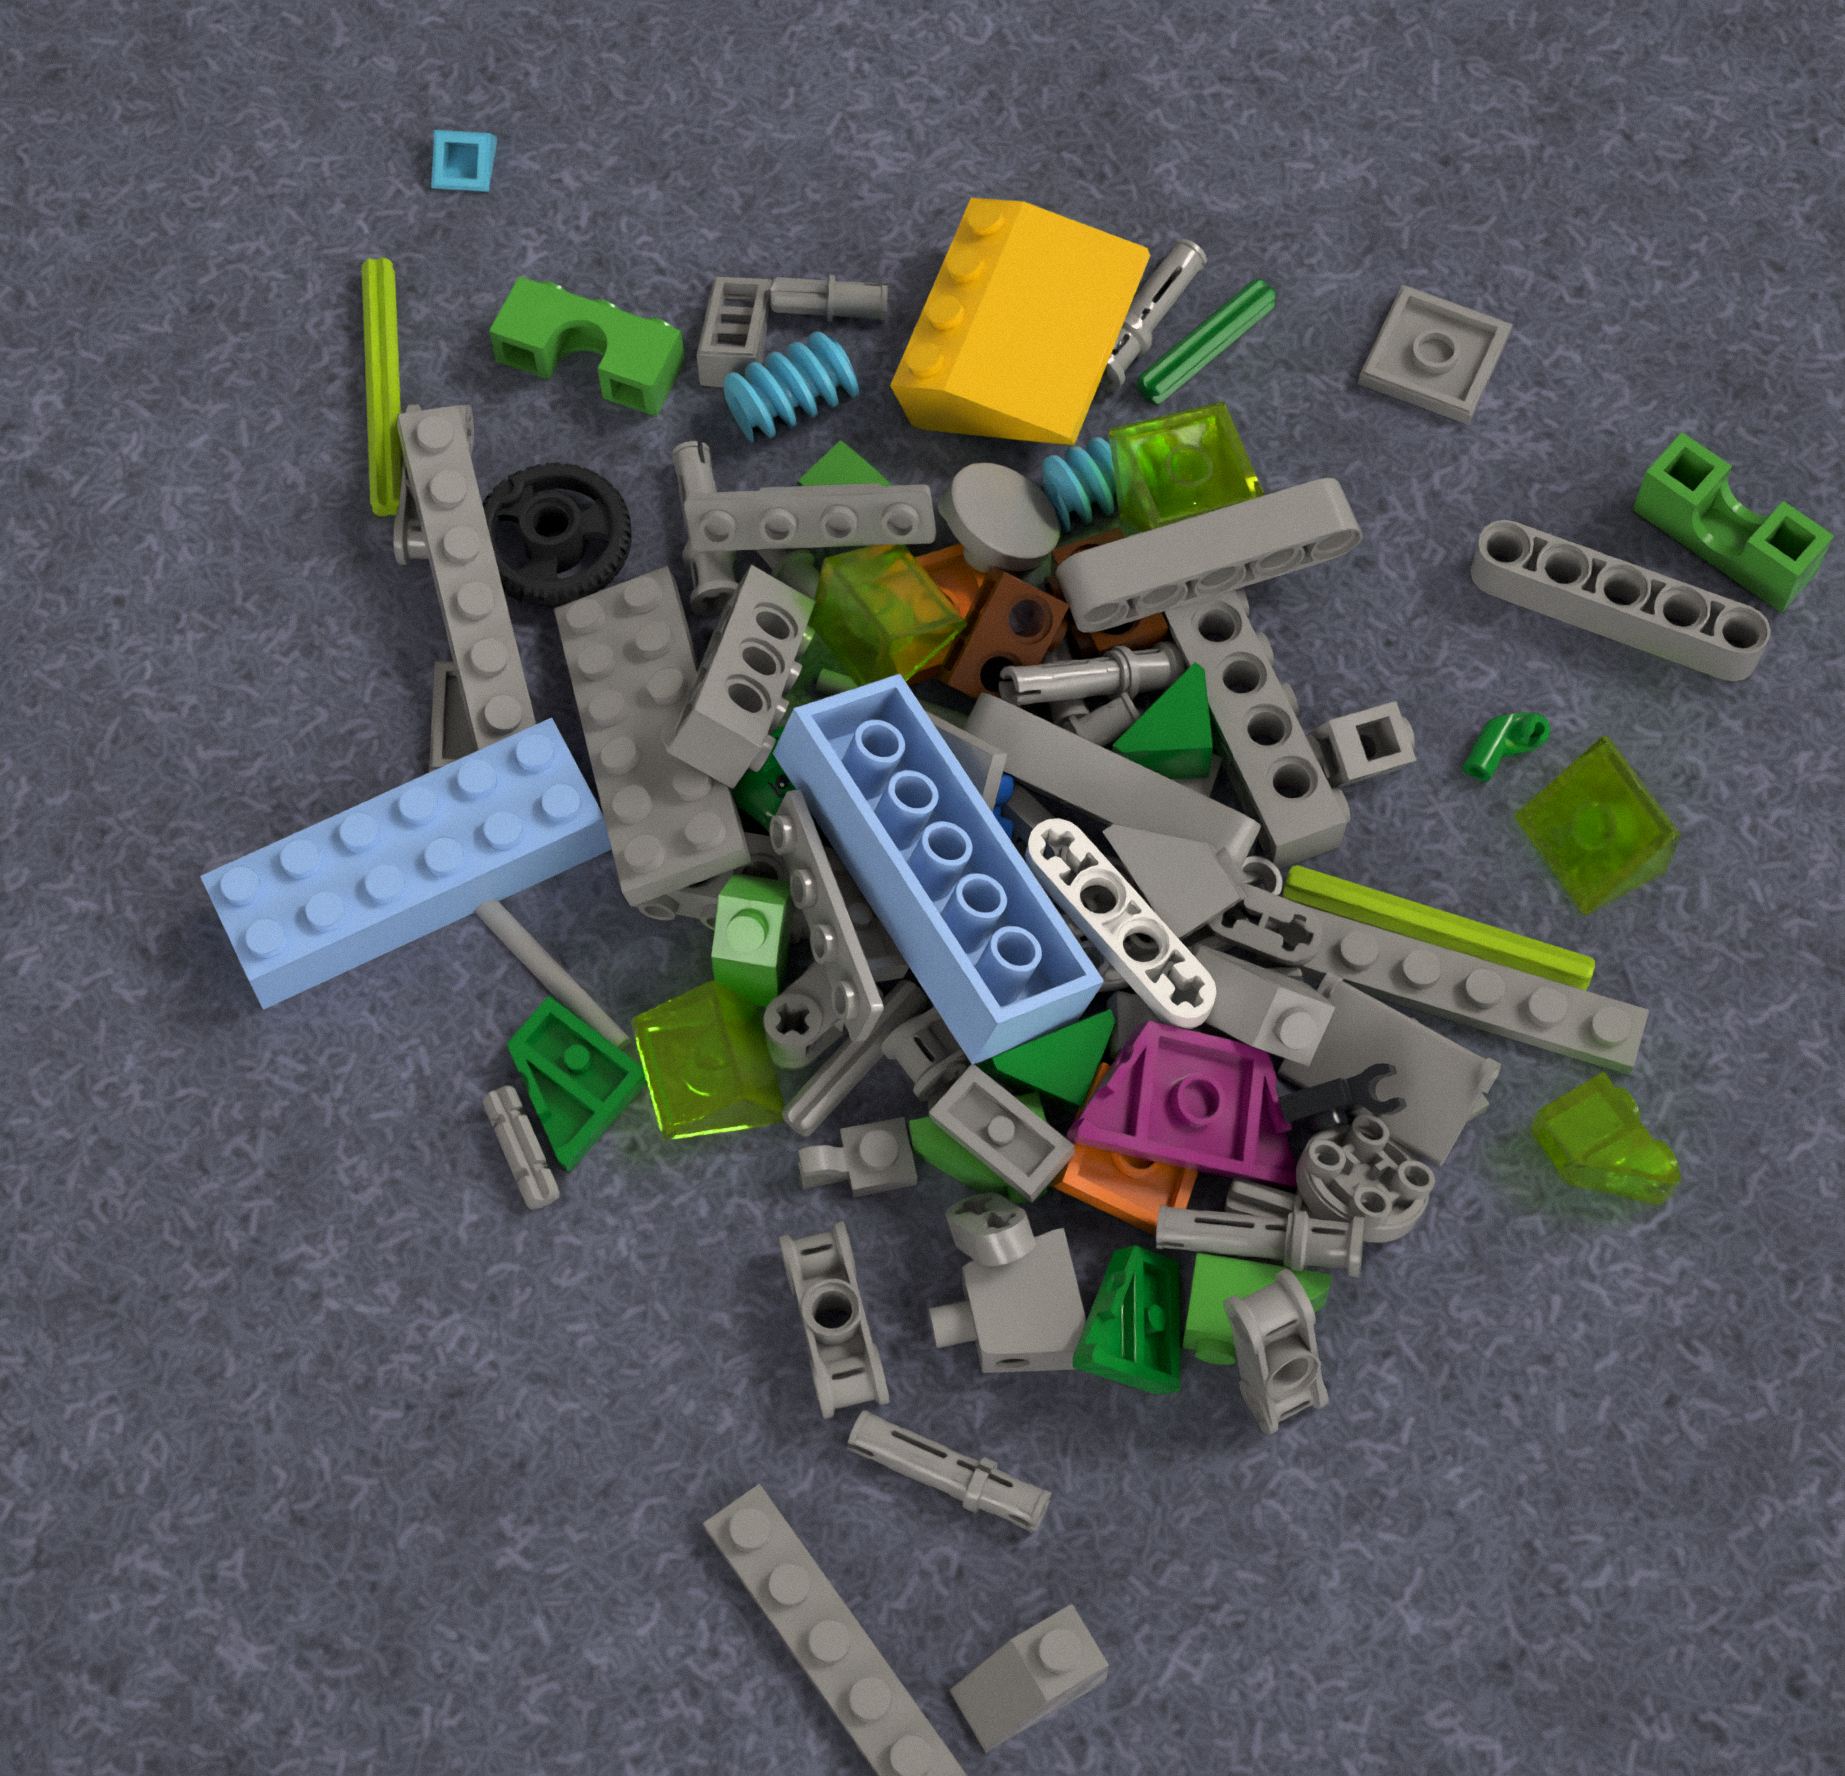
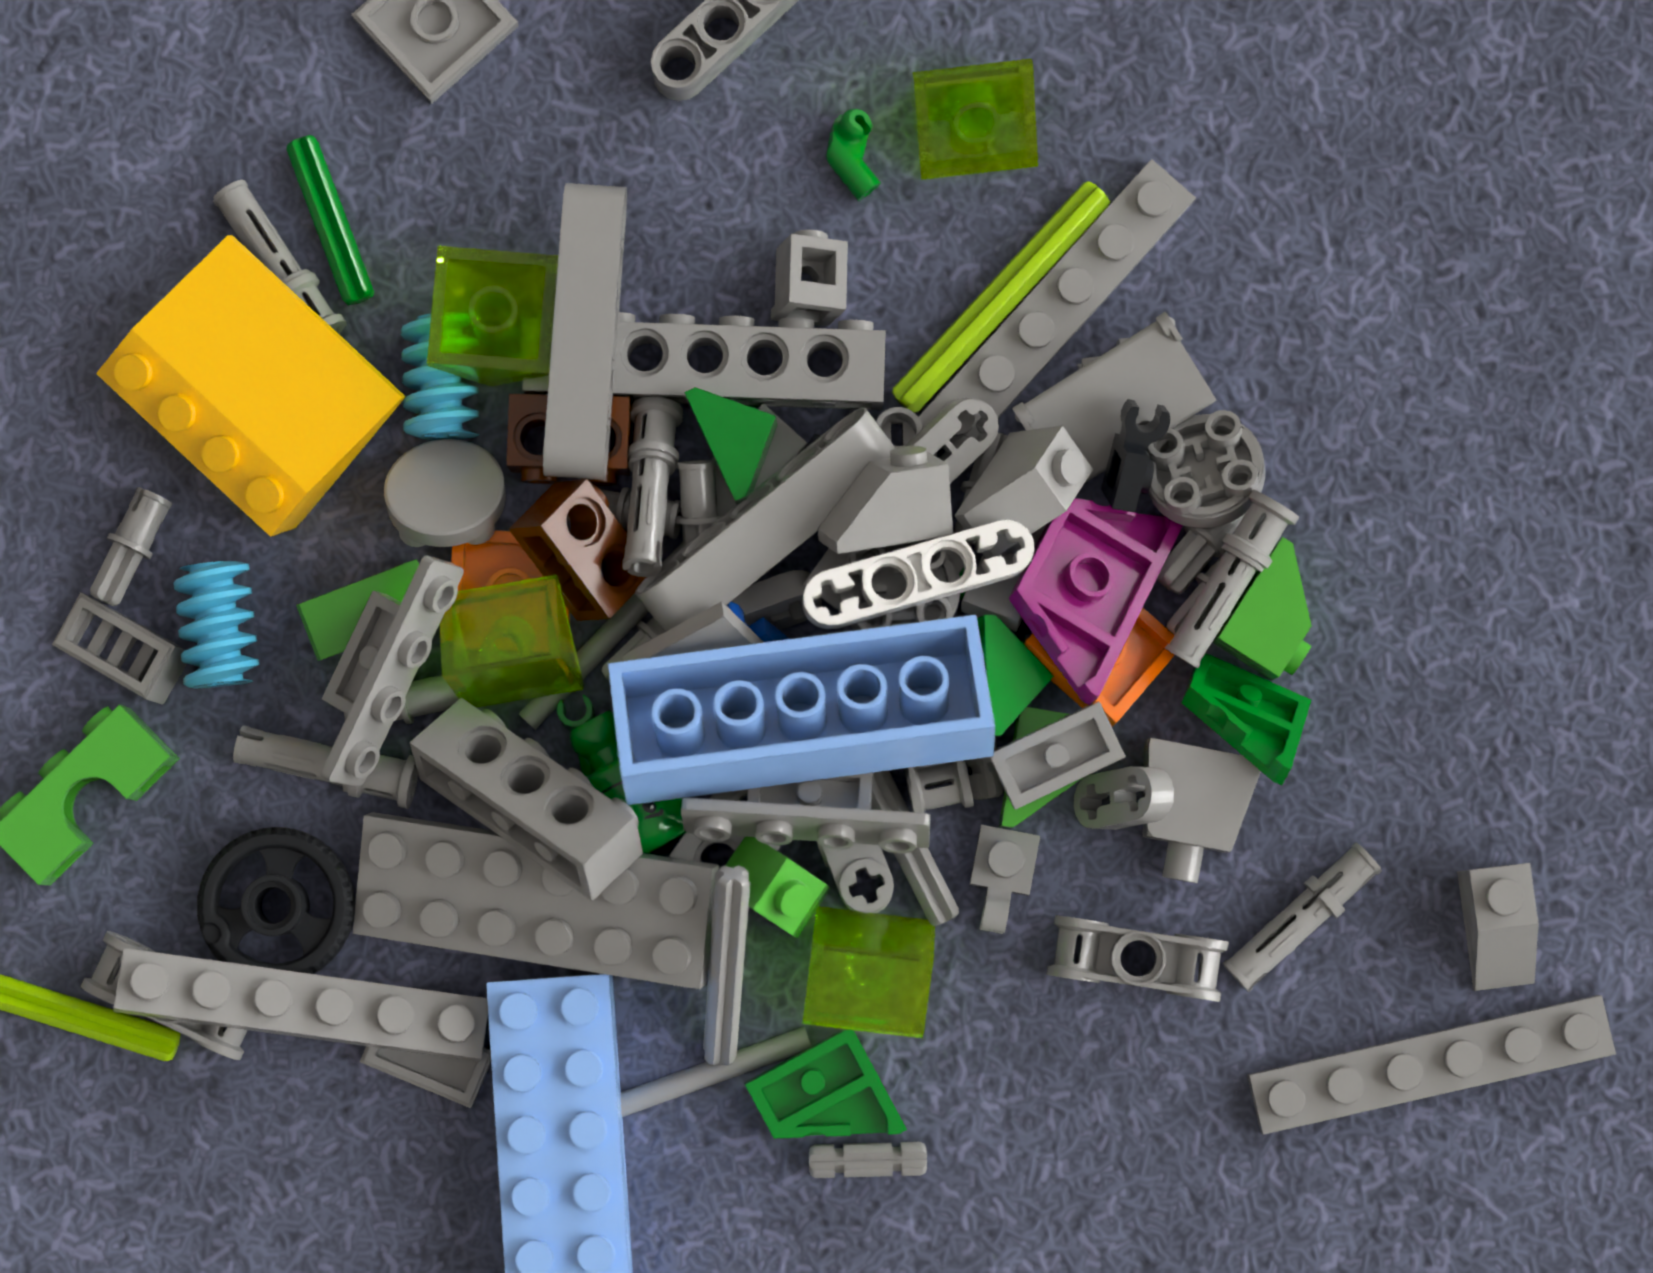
camera: 70 degrees left, 20 degrees up
(656, 911) = (726, 965): none -> light grey axle
(1276, 1351) = (1337, 614): light grey piece -> none
(1603, 1146) = (1250, 259): clear neon green slope -> none

